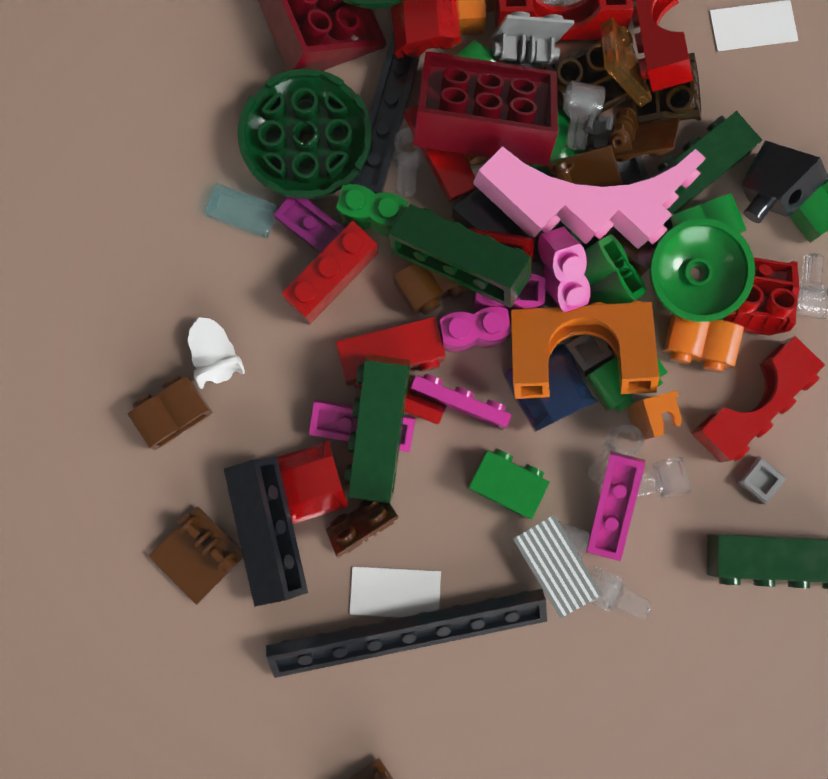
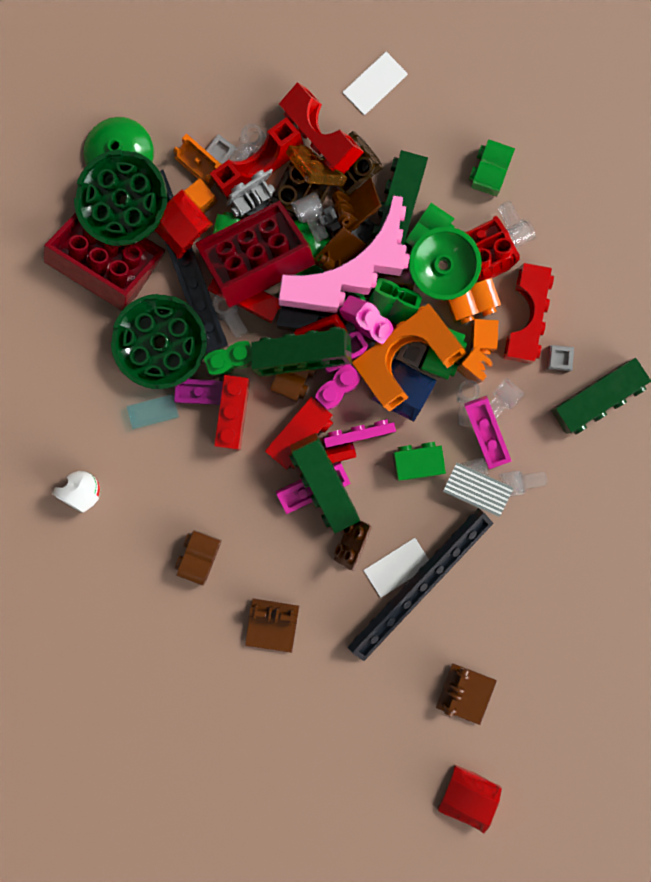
camera: 30 degrees left, 5 degrees up
(90, 239) = (80, 492): none -> white helmet
(212, 353) = (197, 506): white piece -> none
(265, 531) = (301, 585): black brick -> none
(311, 482) = (304, 542): red slope -> none
(693, 388) = (484, 335): none -> orange brick
(780, 181) = (454, 175): black torso -> none

